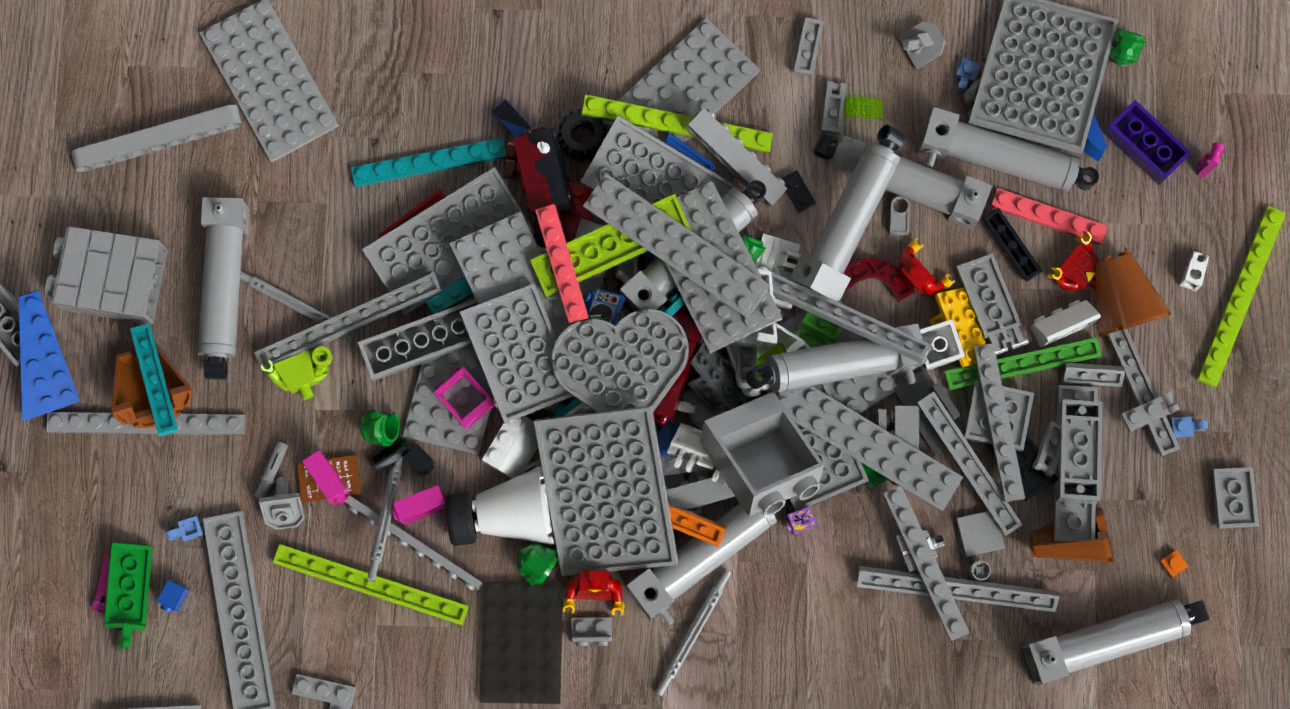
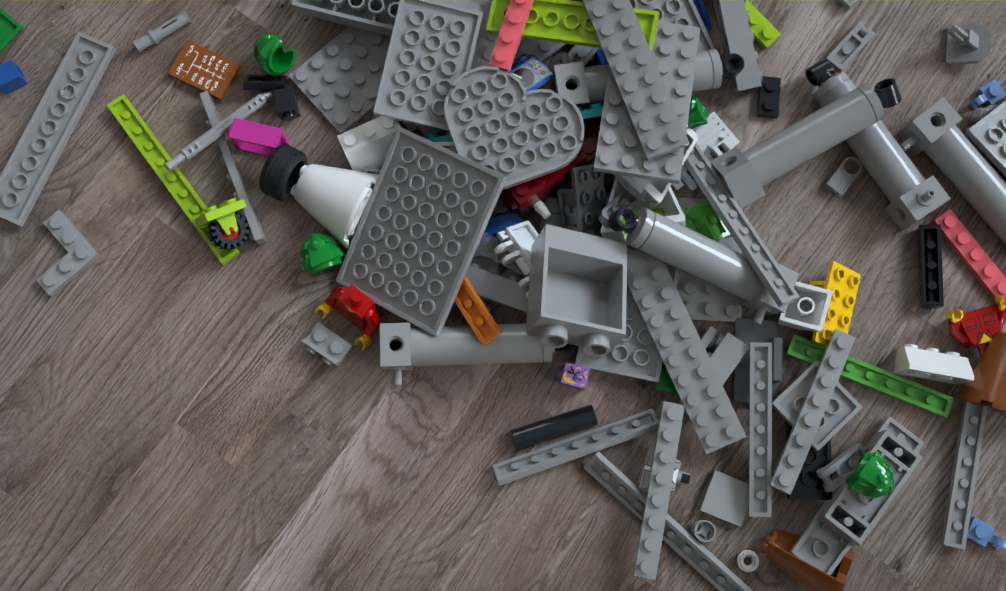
camera: 35 degrees right, 0 degrees up
(188, 530) = (59, 33): medium blue plate -> none
(282, 509) = (146, 67): light grey piece -> none
(326, 478) = (197, 62): dark pink window -> none
(445, 591) = (225, 225): none -> plate
(478, 412) = (358, 95): dark pink window -> none
(521, 642) = (261, 314): clear smoke plate -> none
(692, 633) = (411, 407): light grey axle -> none
(812, 571) = (554, 427): none -> black brick
(840, 574) = (576, 447): none -> light grey plate
(863, 108) = (875, 64): clear neon green plate -> none
(881, 270) = (798, 213): dark red plate -> none
(918, 273) = (828, 234): red torso -> none
(991, 303) = (876, 304): light grey hinge -> none
(1034, 570) = (754, 560): none -> white plate
(1074, 444) = (872, 476): none -> green helmet
(1093, 374) = (928, 429): light grey plate -> none
(1149, 412) = (958, 497): light grey plate -> none

